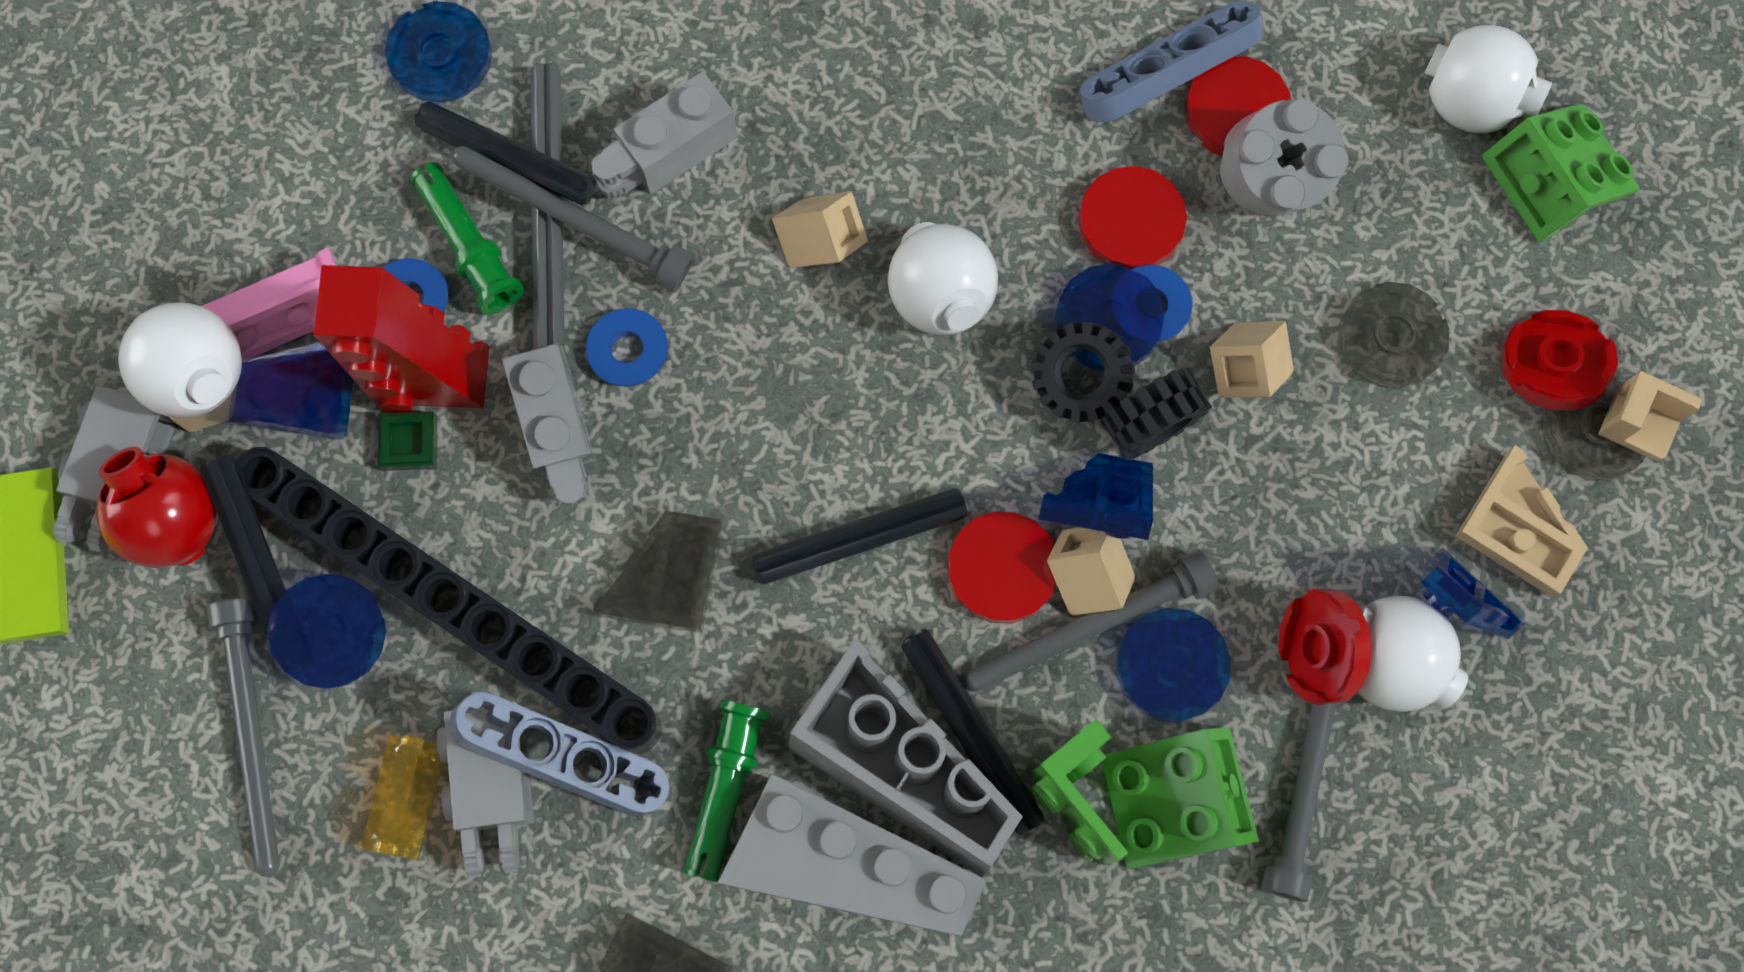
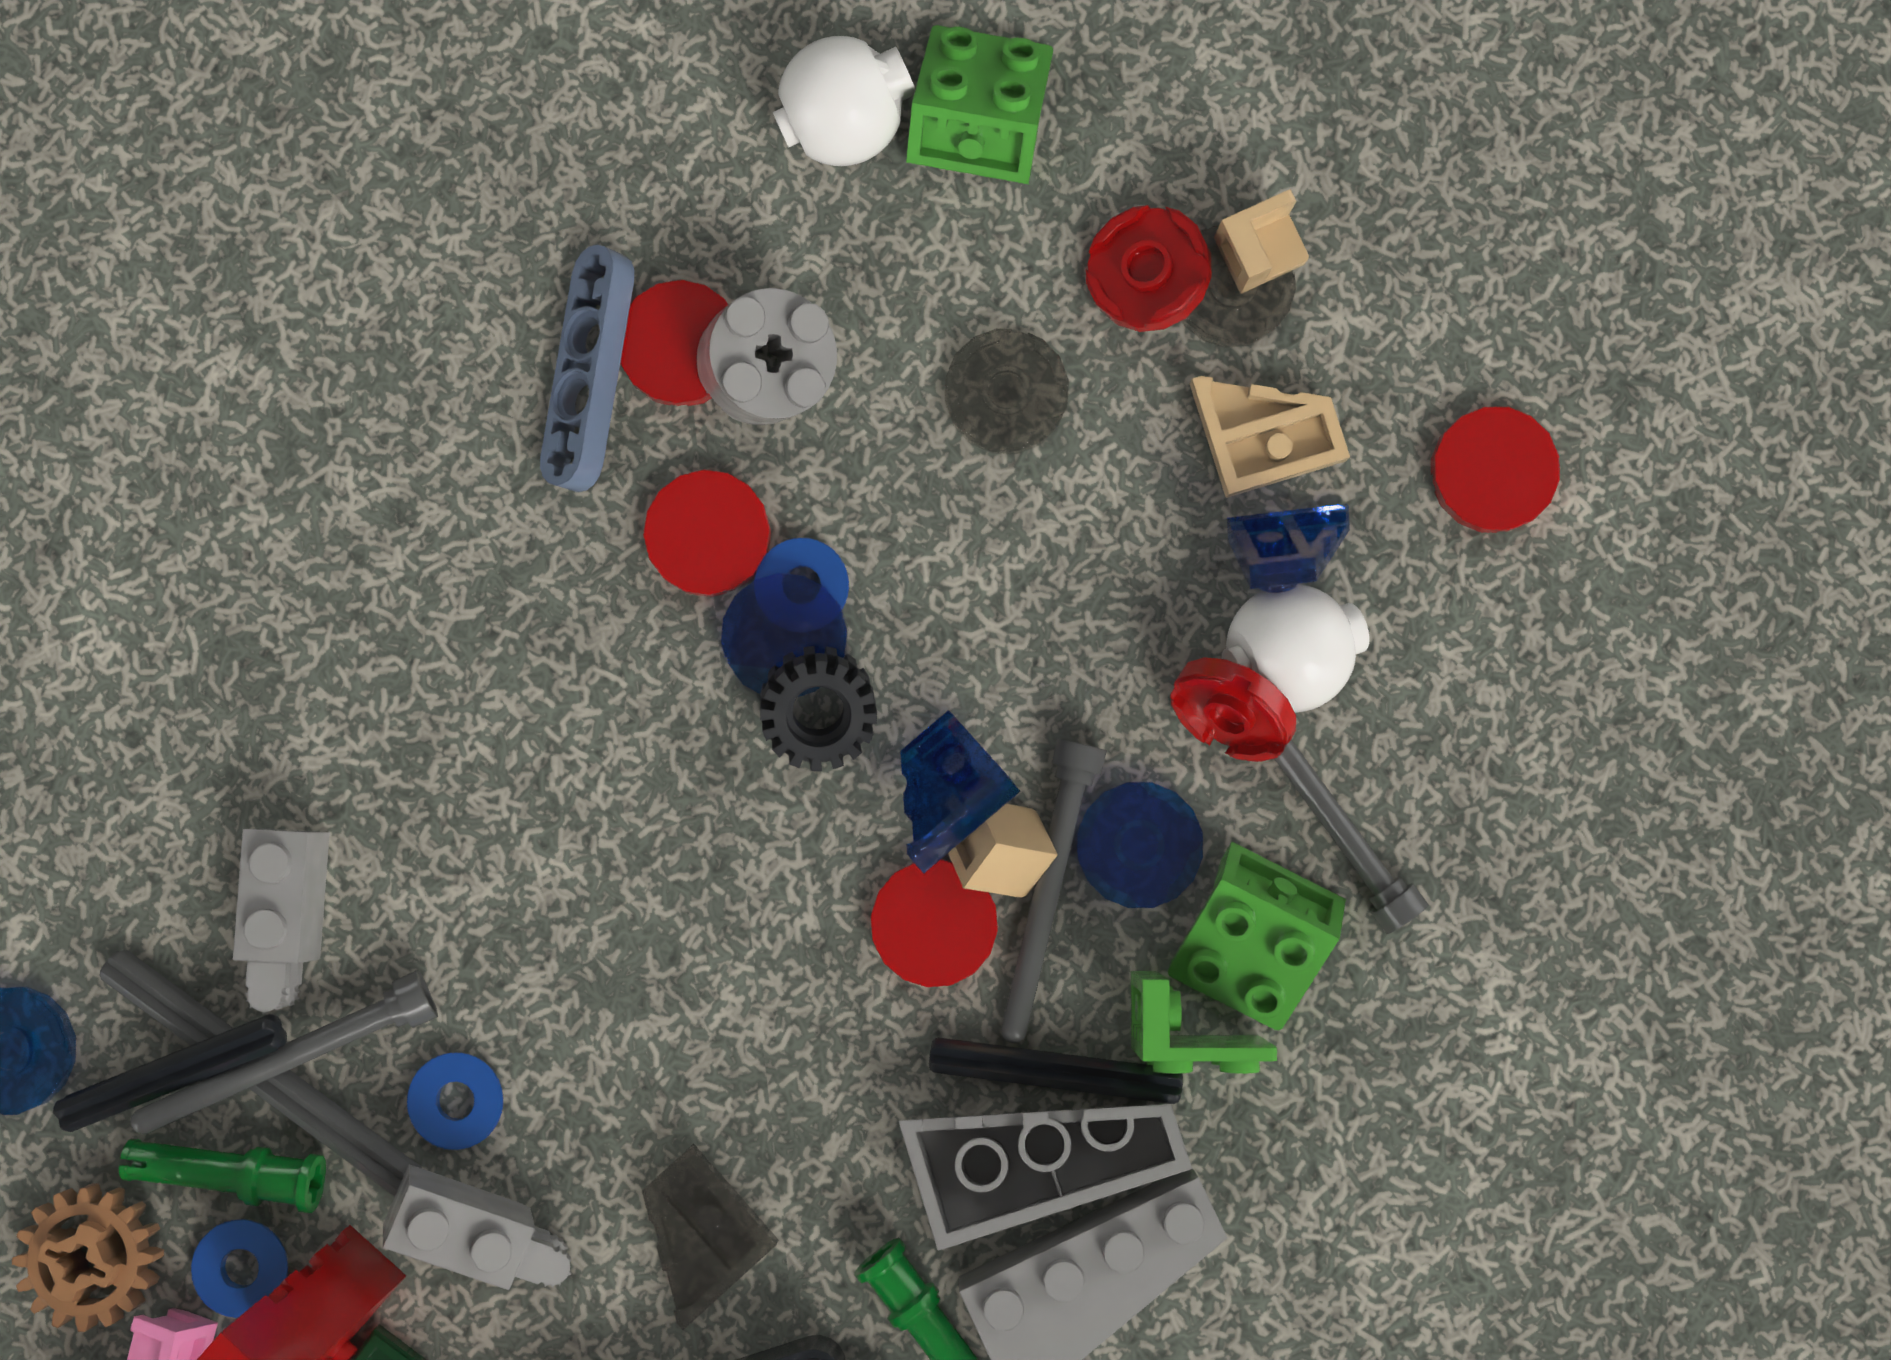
camera: 45 degrees left, 10 degrees up
(365, 202) = (114, 1243): none -> medium nougat gear
(820, 229) = (486, 833): tan panel -> none
(859, 536) = (803, 1029): black axle -> none
(942, 278) = (627, 767): white brick -> none
(1156, 413) = (910, 677): black tyre -> none
(1252, 359) = (927, 541): tan panel -> none
(1641, 706) = (1495, 469): none -> red tile

